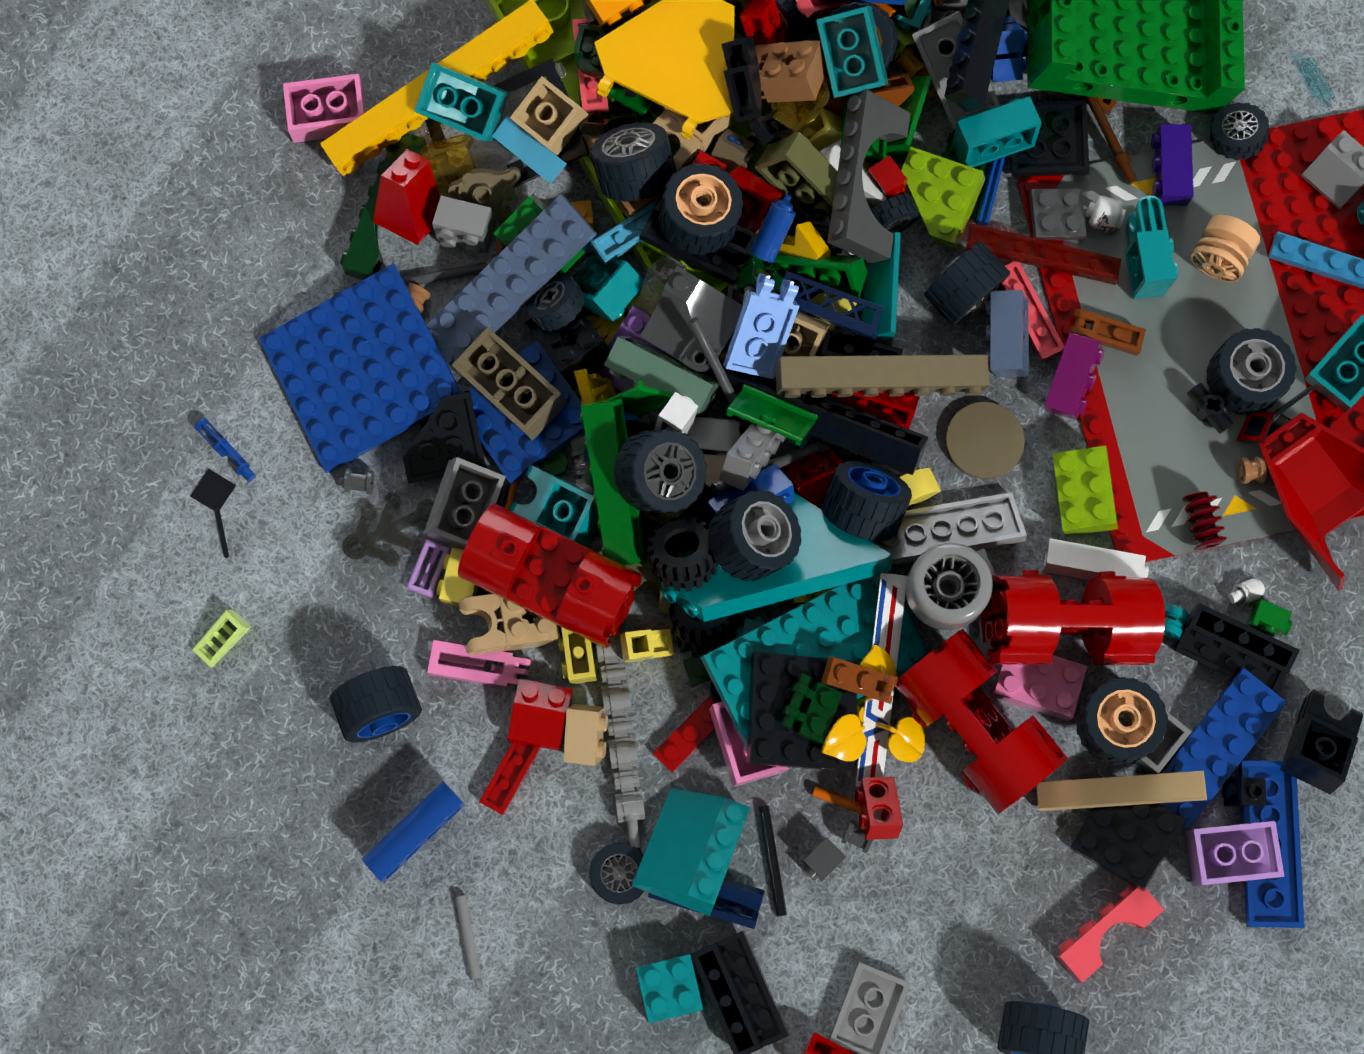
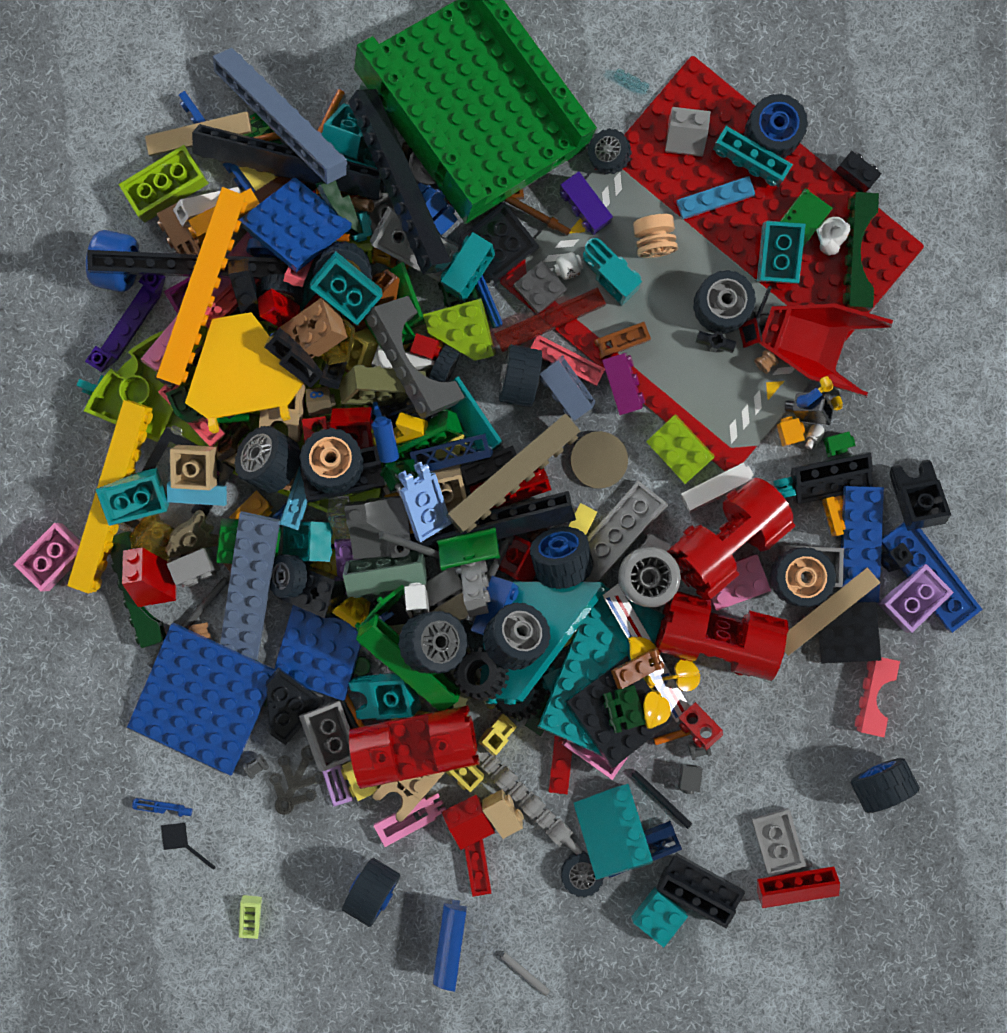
camera: 30 degrees left, 10 degrees up
(526, 384) = (290, 655): dark tan brick -> none
(1204, 520) = (761, 413): dark red piece -> none
(1208, 690) = (833, 509): none -> light orange bracket
(1224, 566) = (790, 431): none -> light orange brick
(1272, 553) = (815, 406): none -> black torso

